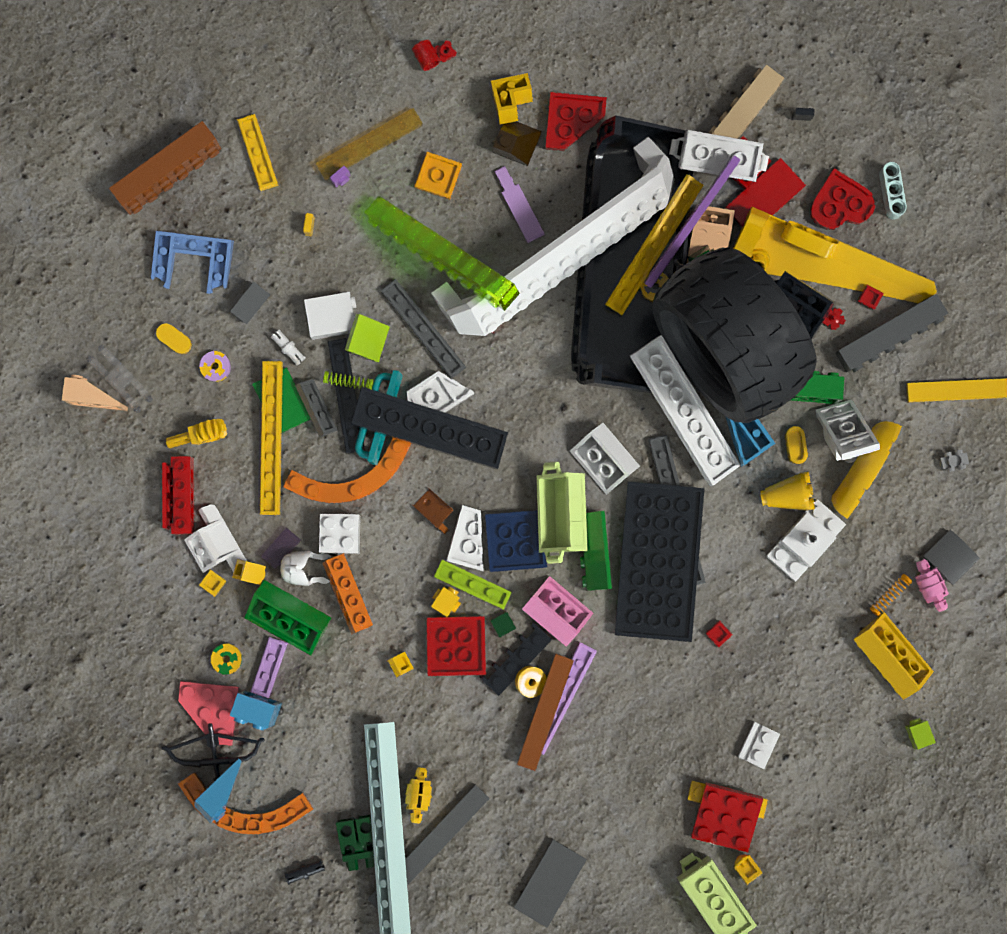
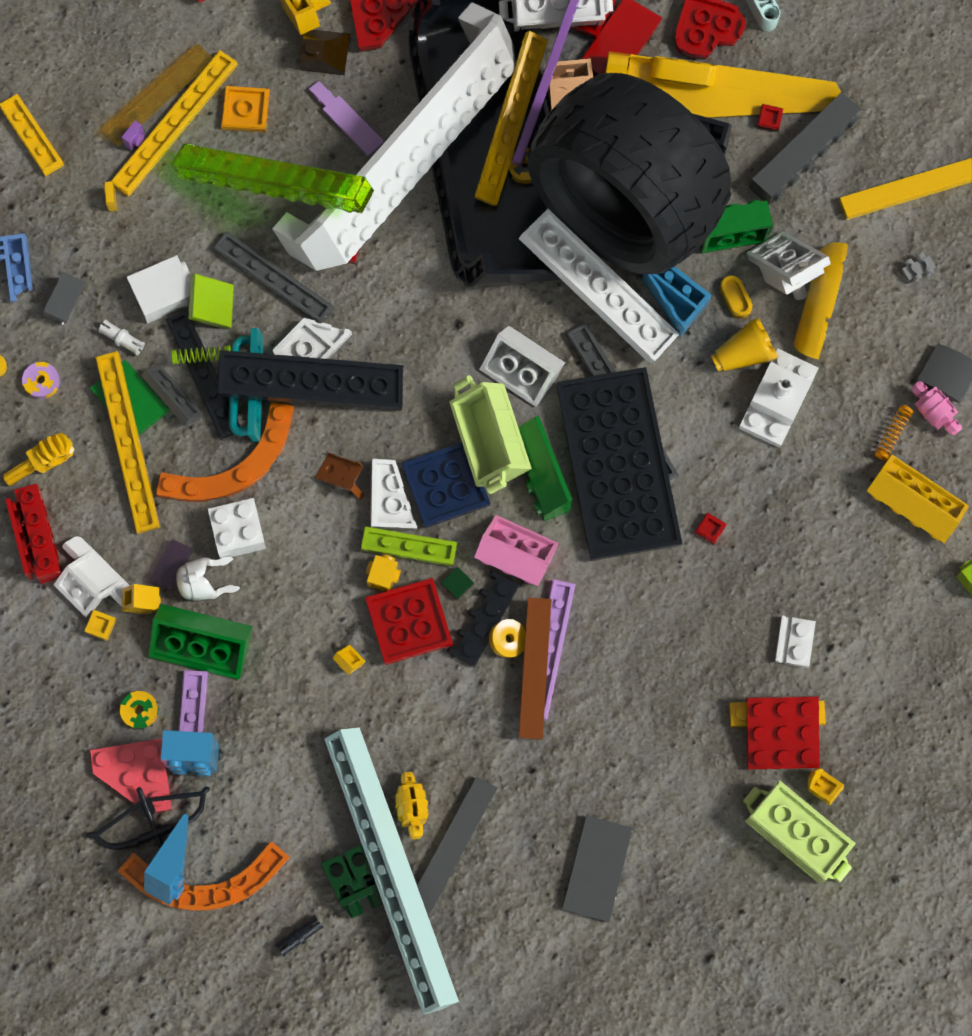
camera: 15 degrees left, 10 degrees down
(347, 594) = (264, 594): orange brick -> none
(377, 172) = (174, 123): none -> yellow tile
(834, 319) = (737, 151): red plant -> none

